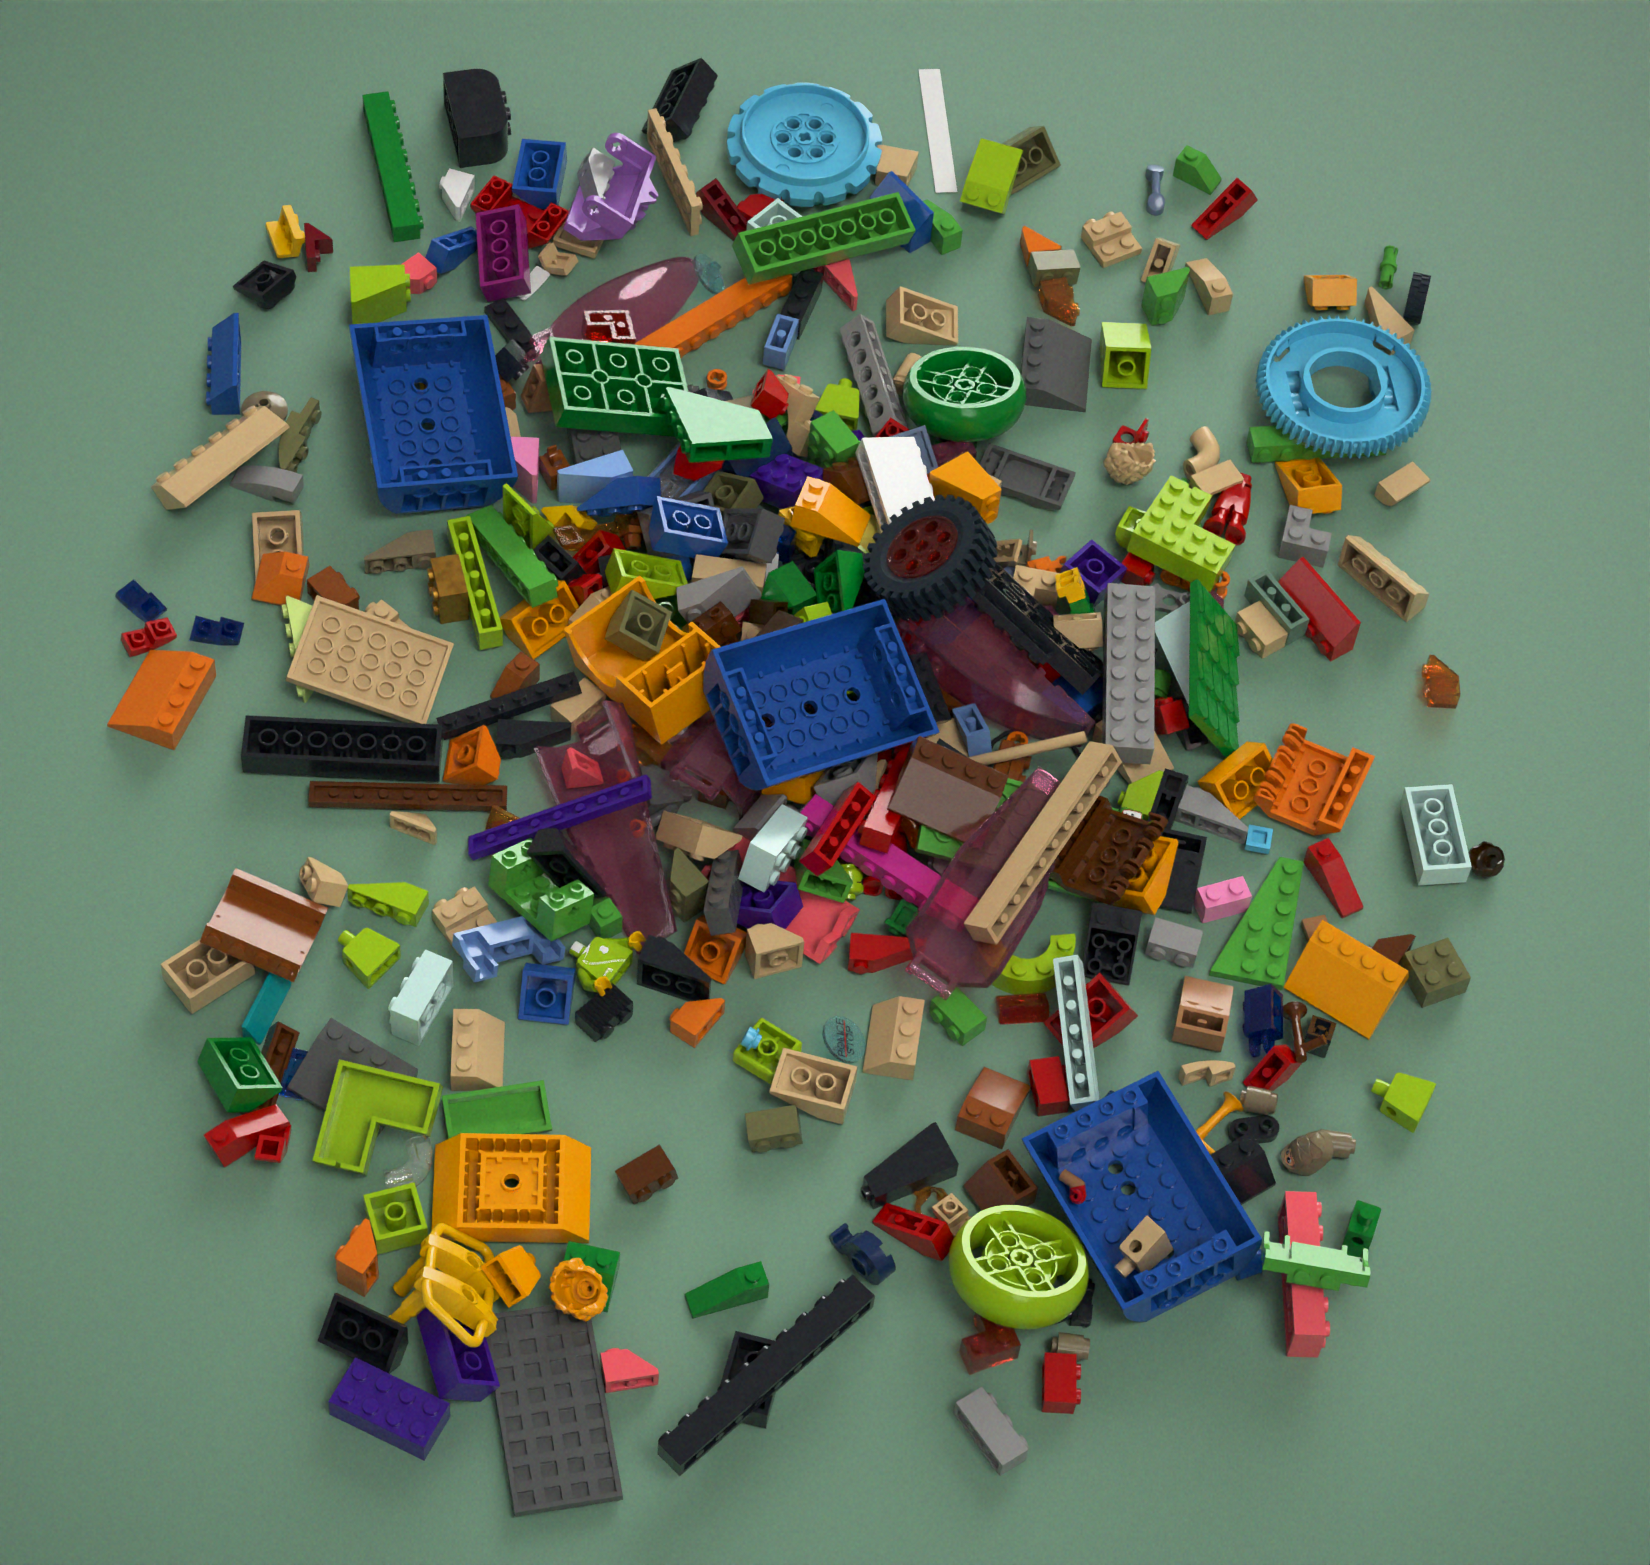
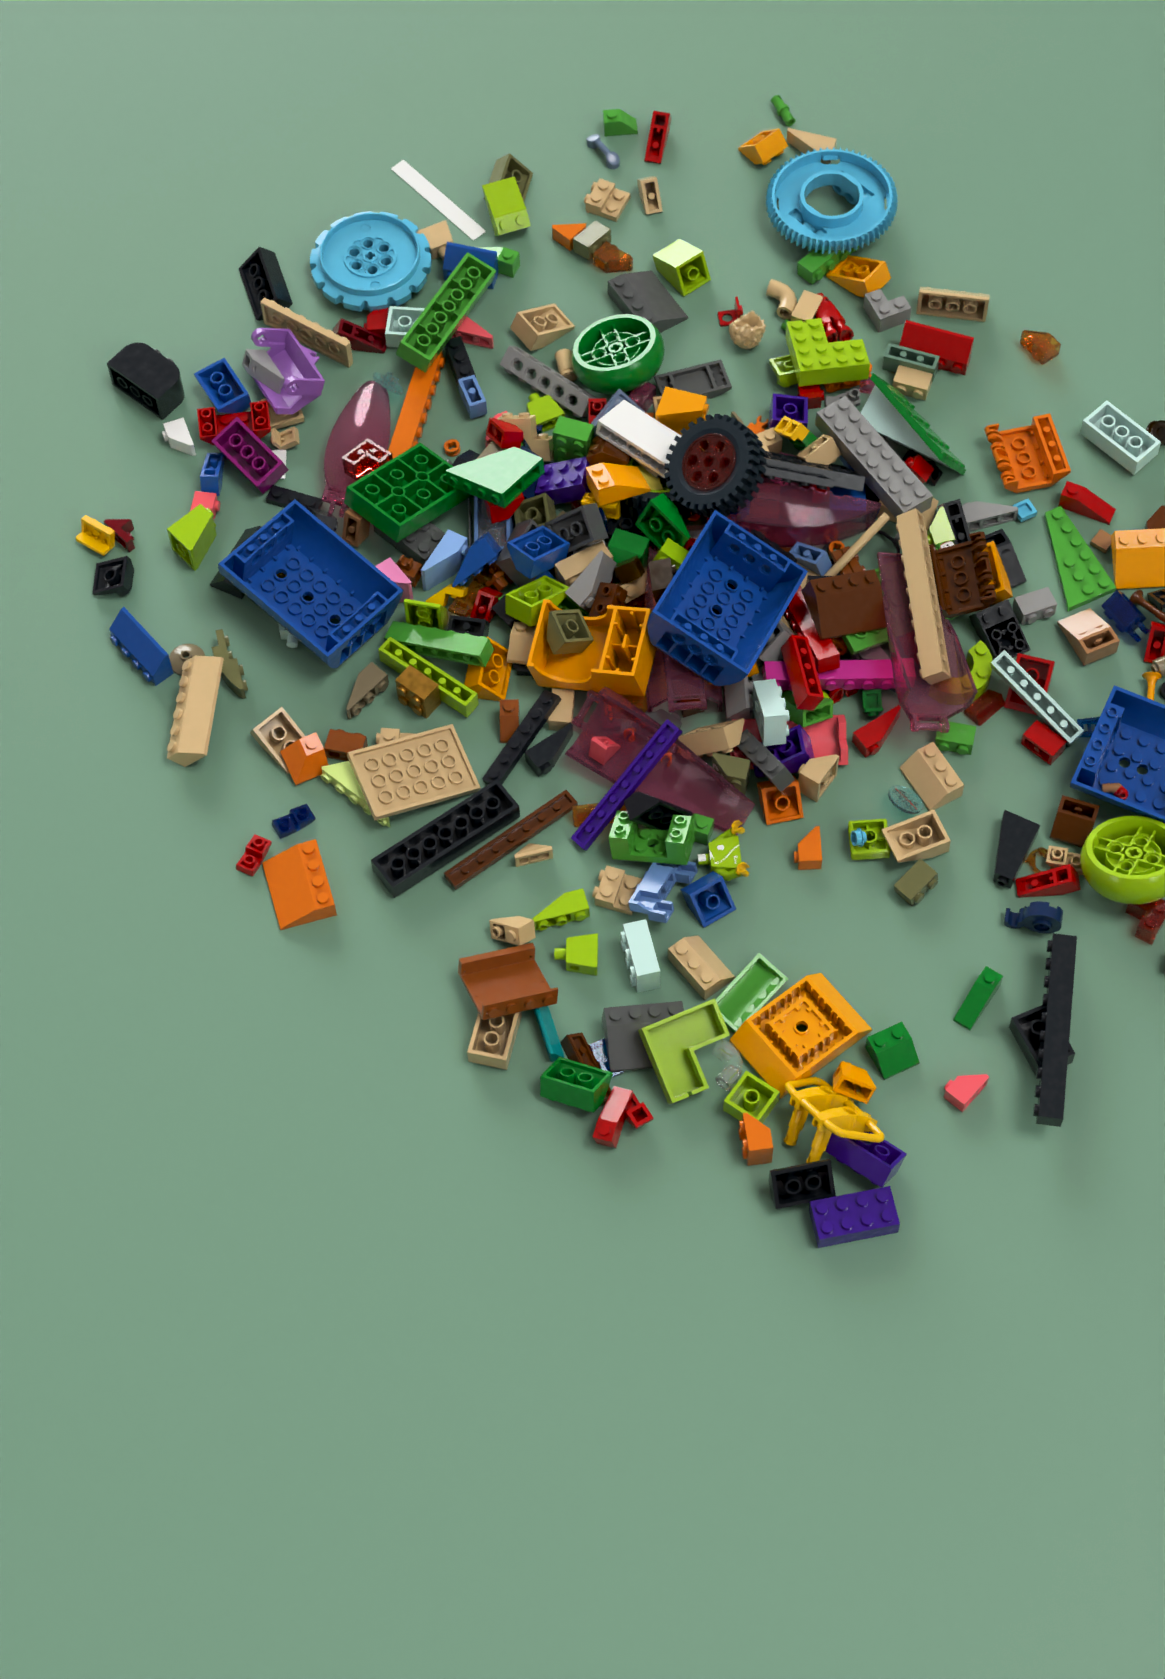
camera: 30 degrees left, 5 degrees up
(139, 602) = (230, 838): clear blue slope -> none
(268, 482) = (238, 703): light grey slope -> none
(391, 166) = (121, 447): green brick -> none
(472, 759) = (529, 787): orange slope -> none
(552, 1411) = (947, 1144): dark grey plate -> none
(572, 1291) = (899, 1067): light orange hair -> none
(584, 586) = (501, 631): red slope -> none
(603, 1013) = (752, 887): black brick -> none
(647, 1175) = (870, 964): reddish brown brick -> none
(670, 971) = (772, 831): black slope -> none
(992, 1107) = (1024, 778): dark orange slope -> none
(1164, 295) = (674, 214): bright green slope -> none
(1211, 286) = (691, 189): tan slope -> none
(1211, 1070) = (1123, 668): tan slope -> none
(1222, 899) = (1039, 560): bright pink brick -> none
(1238, 778) = (982, 479): light orange slope -> none
(1401, 484) = (912, 240): tan brick -> none
(1417, 297) = (821, 117): black wheel -> none

